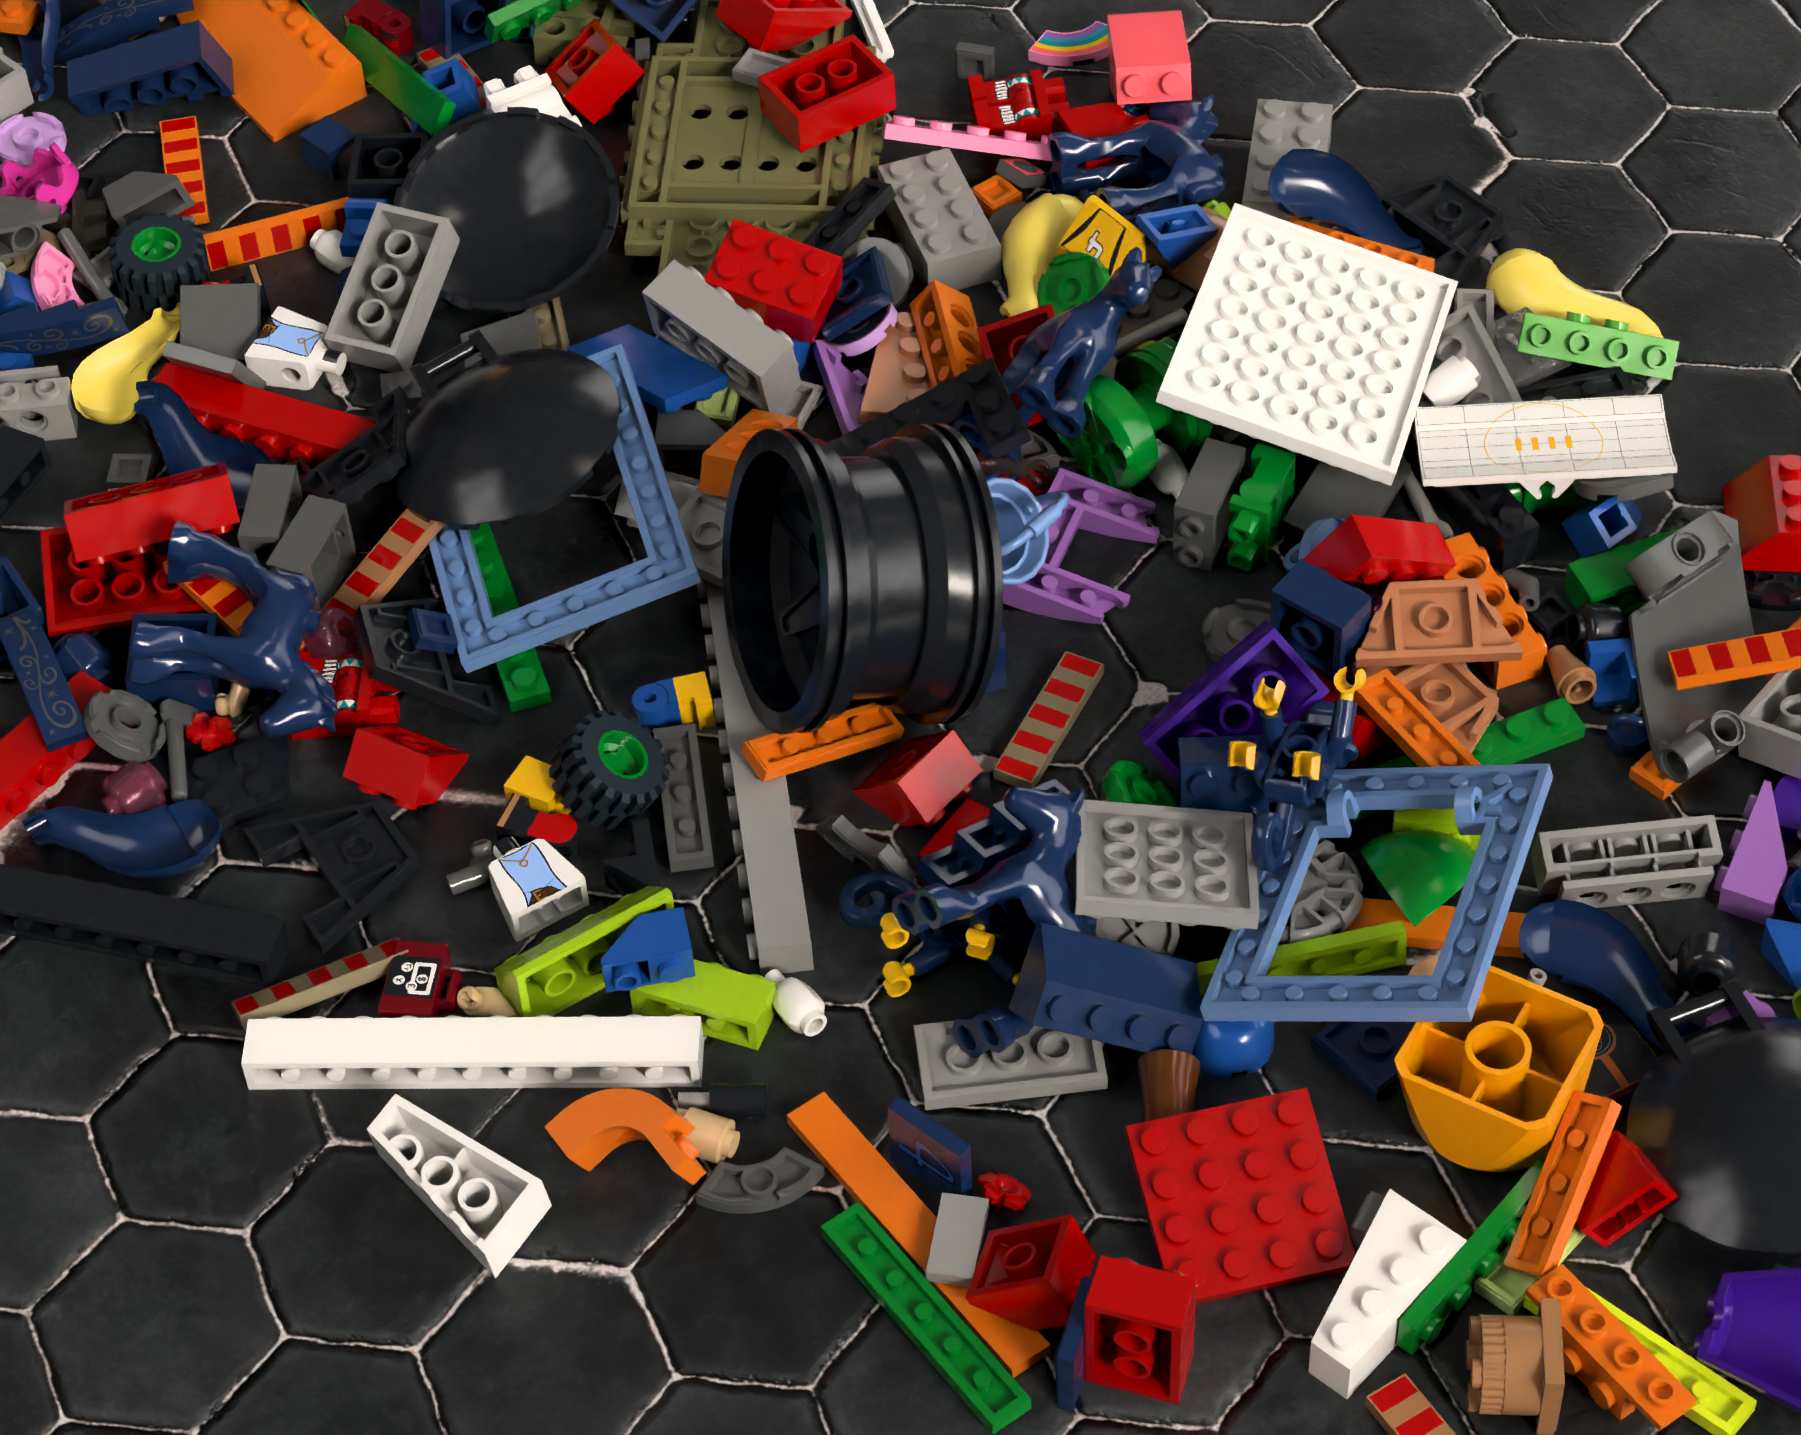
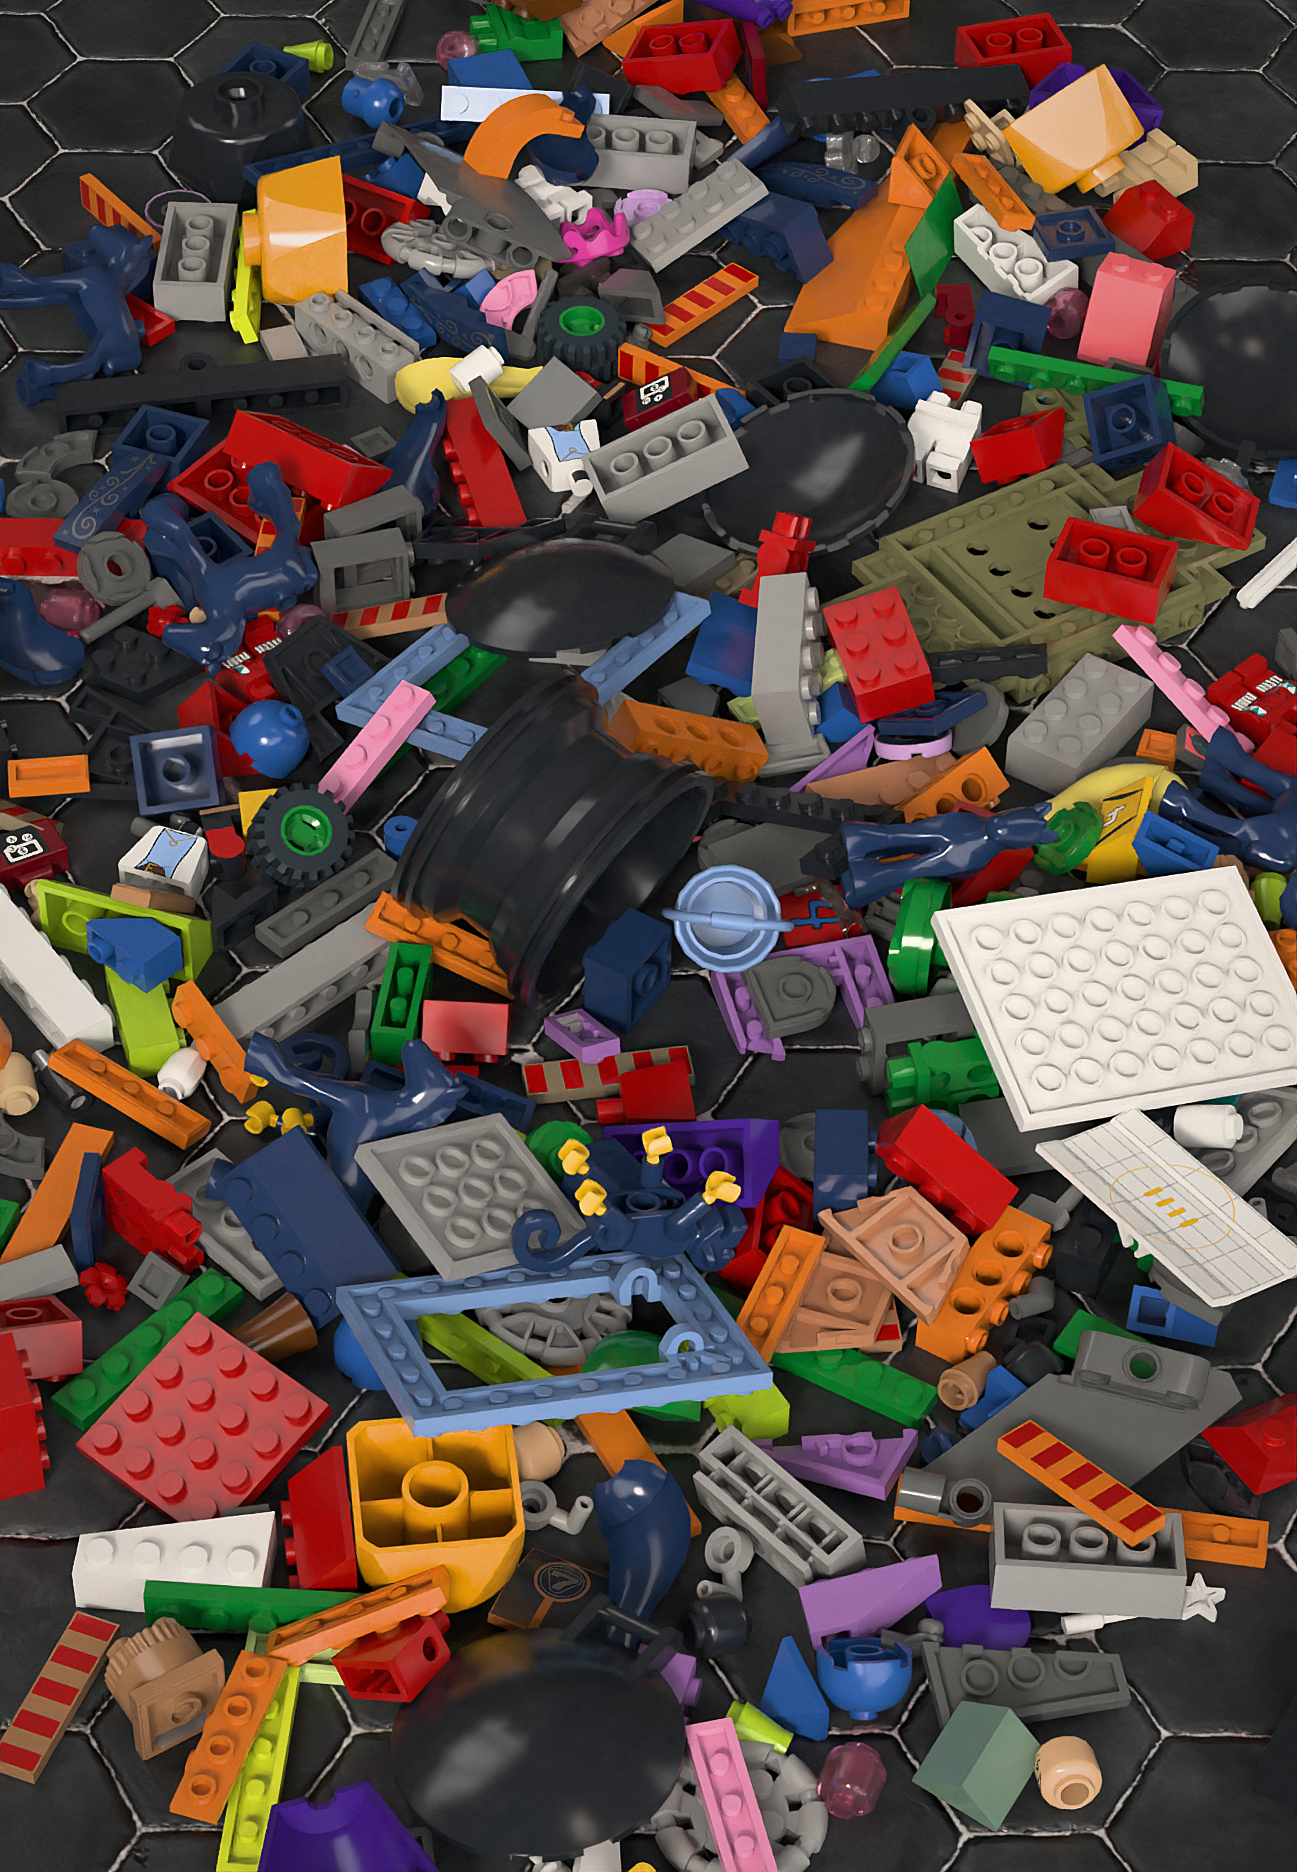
camera: 50 degrees right, 5 degrees down
(96, 100) = (696, 214): none -> light grey plate
(125, 350) = (479, 362): none -> white brick
(298, 255) = (659, 398): none -> dark red piece
(340, 912) = (48, 776): none -> orange tile
(444, 811) = (177, 771): none -> dark blue brick
(454, 724) = (272, 736): none -> blue cylinder
(549, 659) = (376, 743): none -> bright pink plate
(596, 907) = (153, 898): none -> medium nougat tile
(600, 283) = (782, 553): none -> red hips
(793, 1054) = (129, 1094): none -> orange tile
(798, 956) = (213, 1040): none -> orange plate
(842, 786) = (401, 1000): none -> green brick
(976, 1103) = (151, 1212): none -> red hips
(1007, 710) = (582, 1036): none -> medium lavender piece
(1035, 1147) = (157, 1280): none -> dark grey plate
(1083, 553) = (789, 995): none -> dark grey tile
(1091, 1178) = (102, 1382): none -> green plate
(1118, 705) = (650, 1097): none -> red torso
(1433, 1166) = (320, 1527): none -> red slope
(1599, 790) = (848, 1461): none -> medium lavender wing
(1648, 924) = (721, 1559): none -> light grey plate

